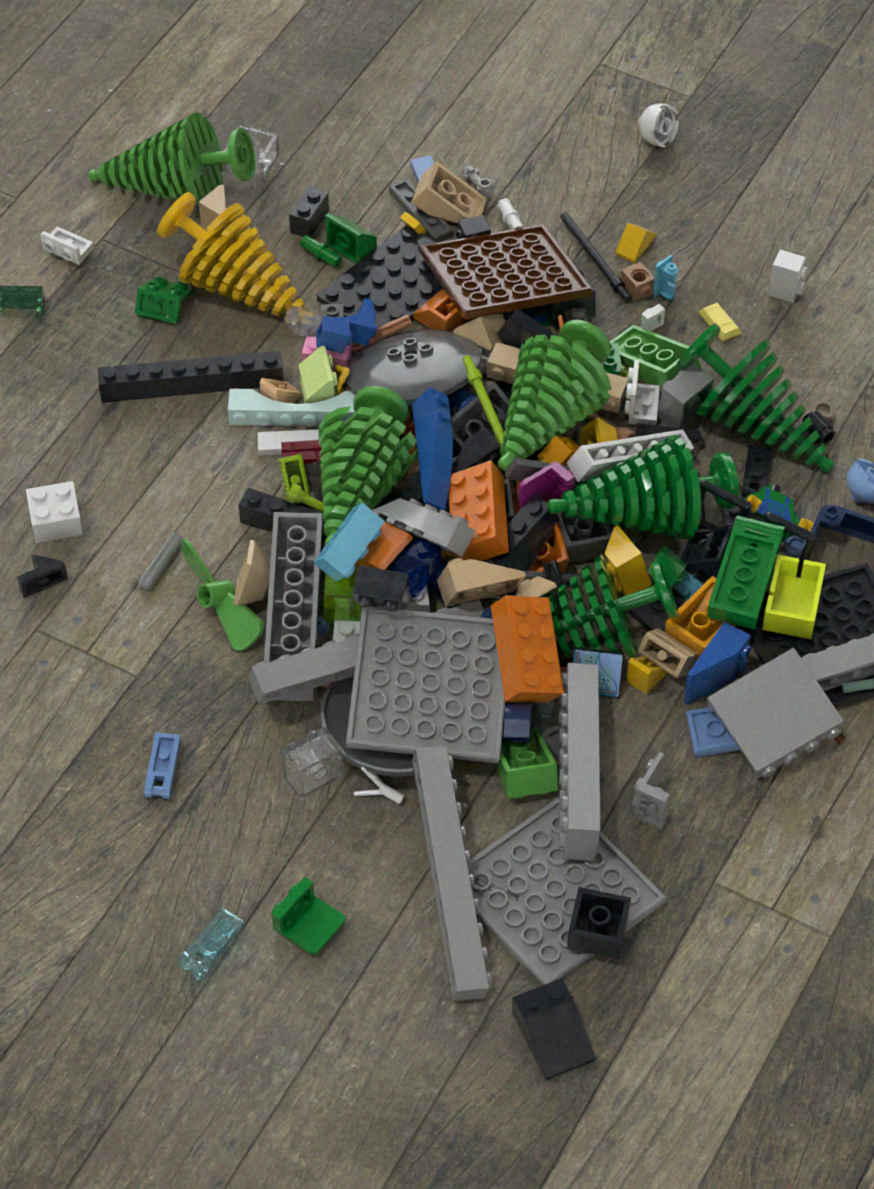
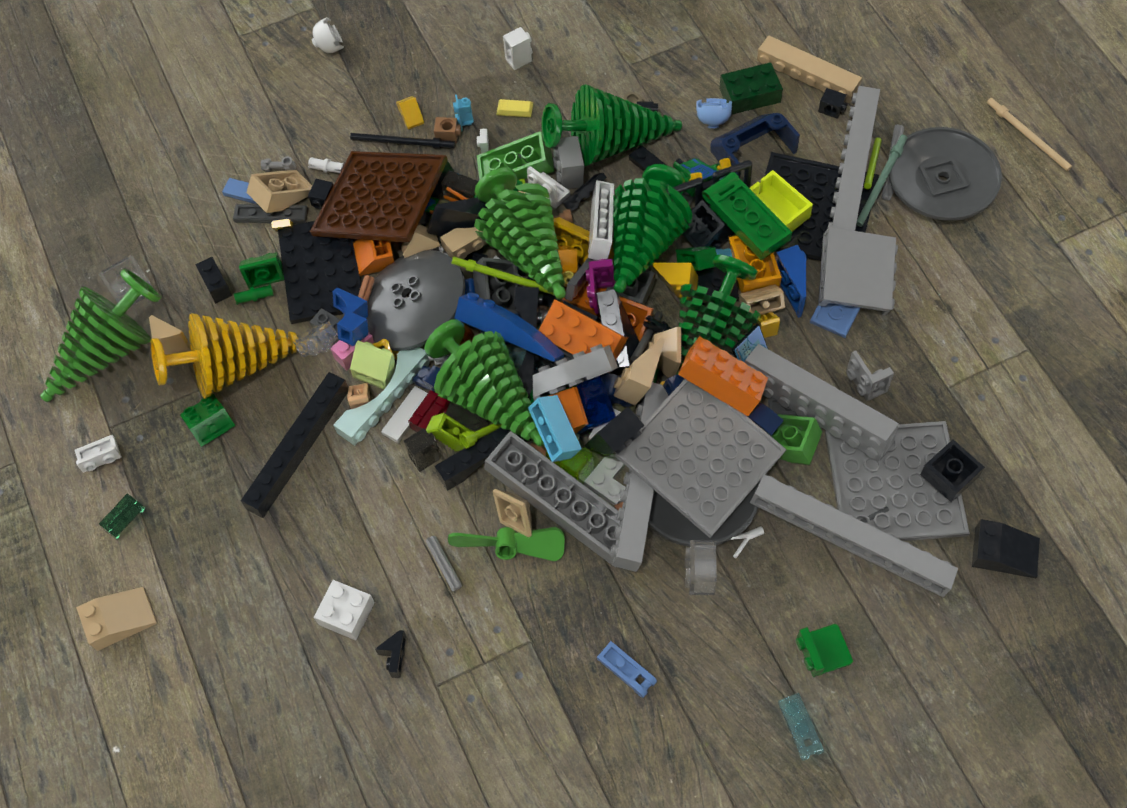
camera: 50 degrees left, 10 degrees up
(258, 468) = (422, 449): none -> clear smoke brick

